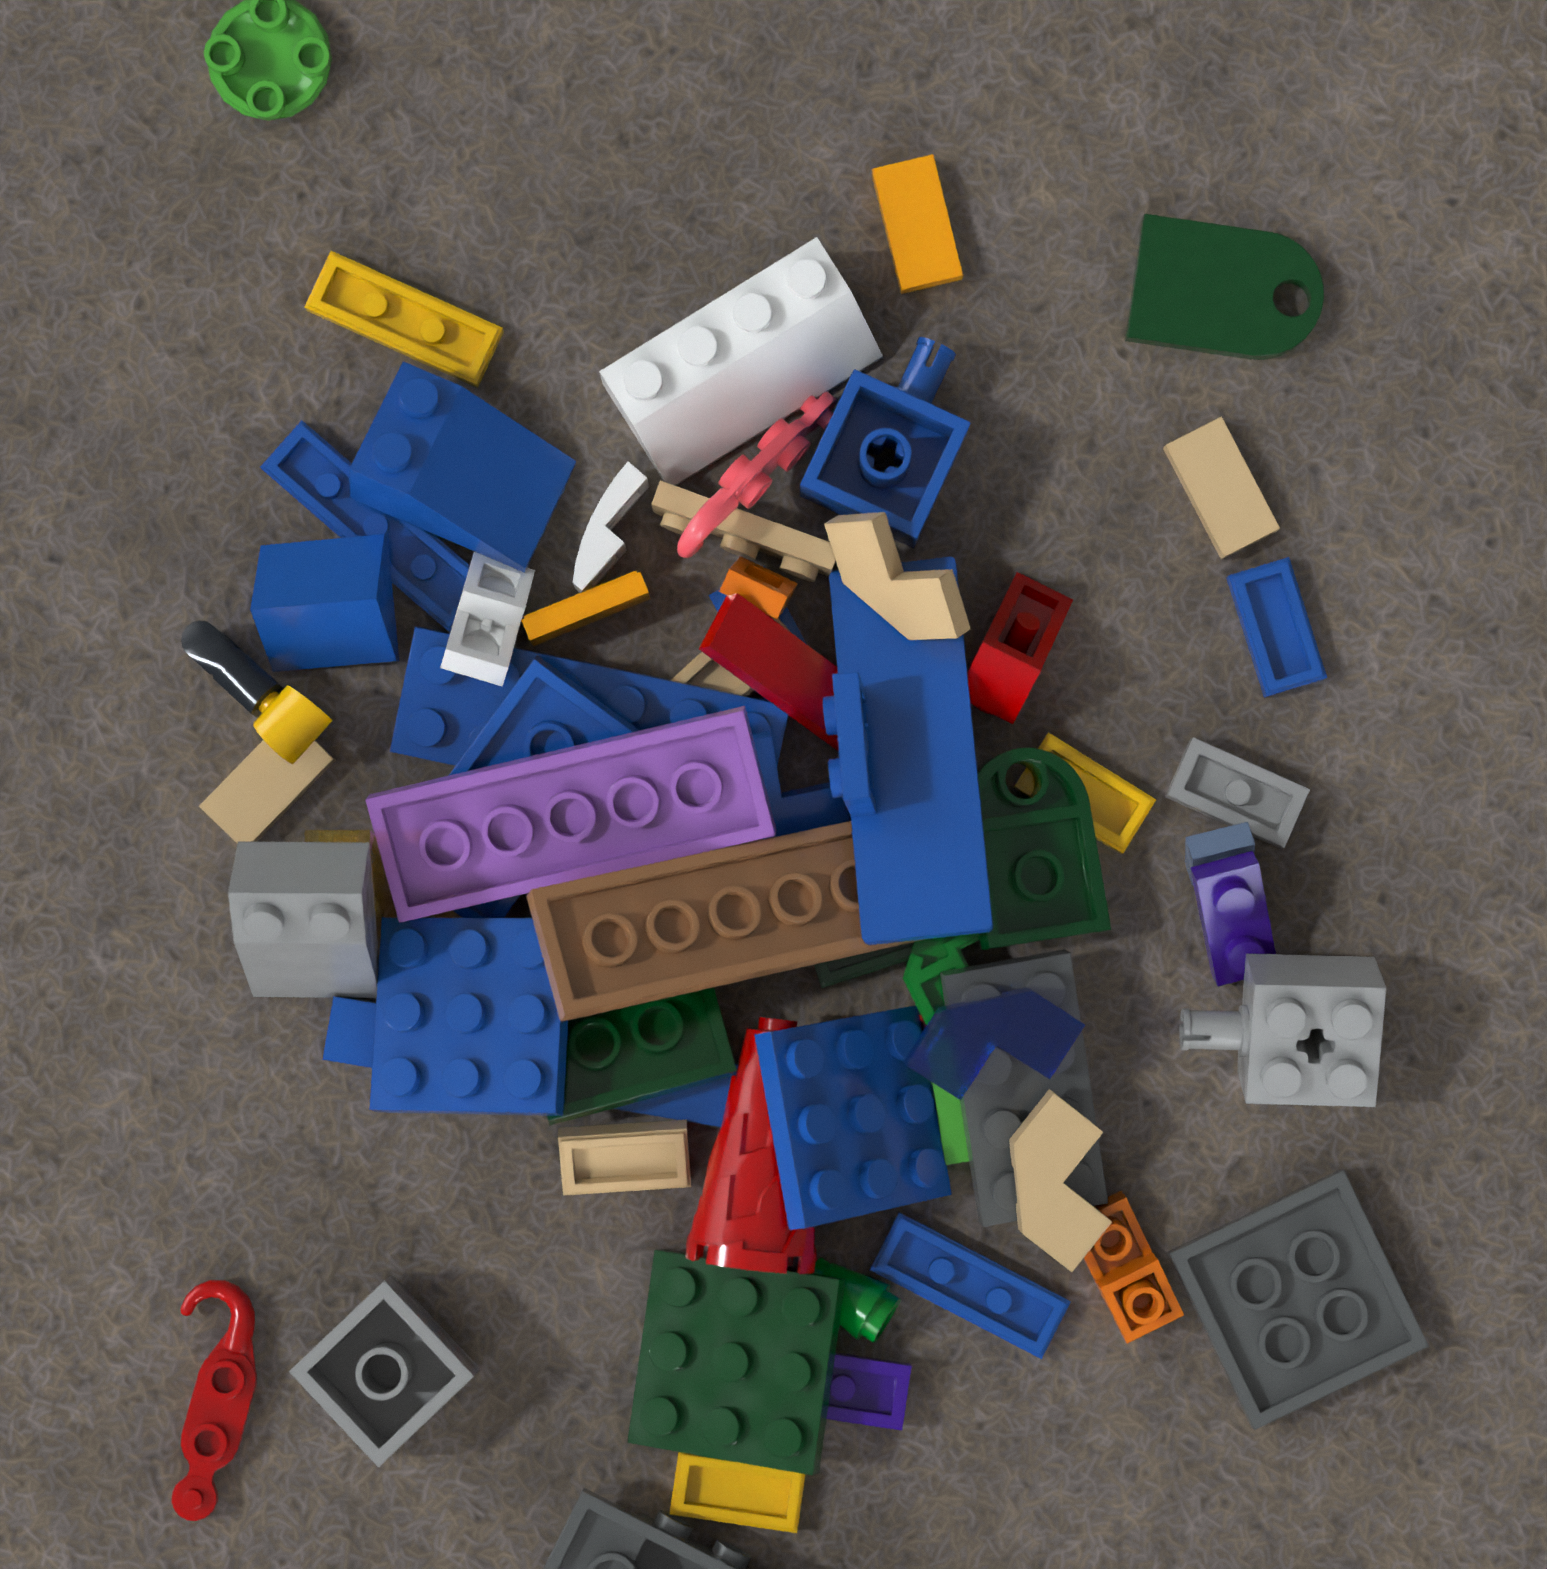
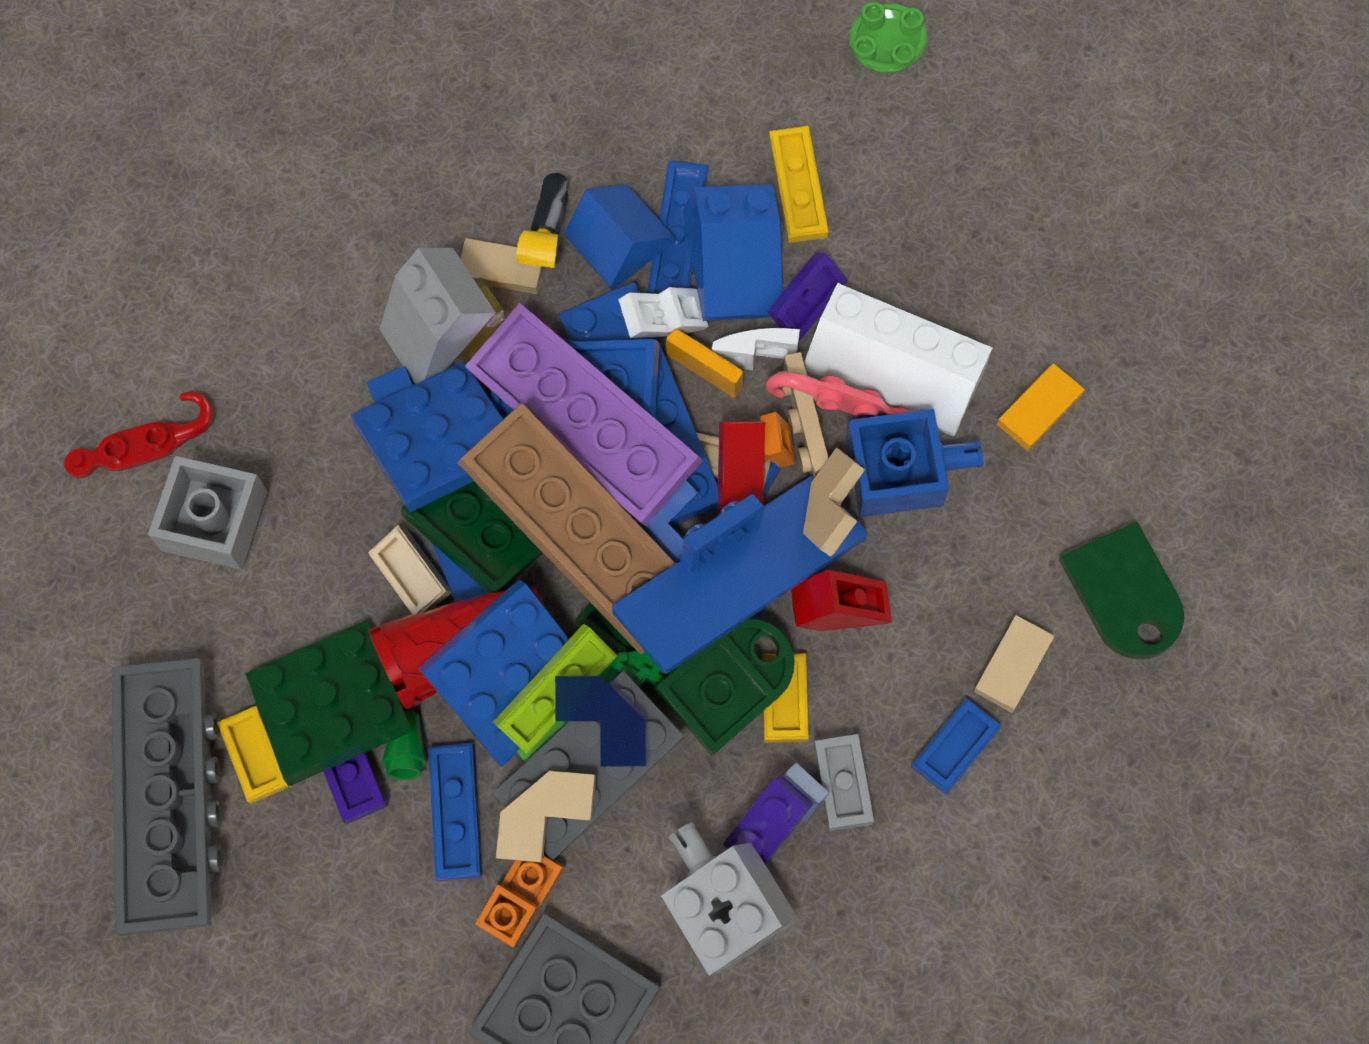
camera: 60 degrees right, 15 degrees down
(578, 416) = (807, 294): none -> dark purple plate
(915, 1106) = (533, 709): none -> lime tile

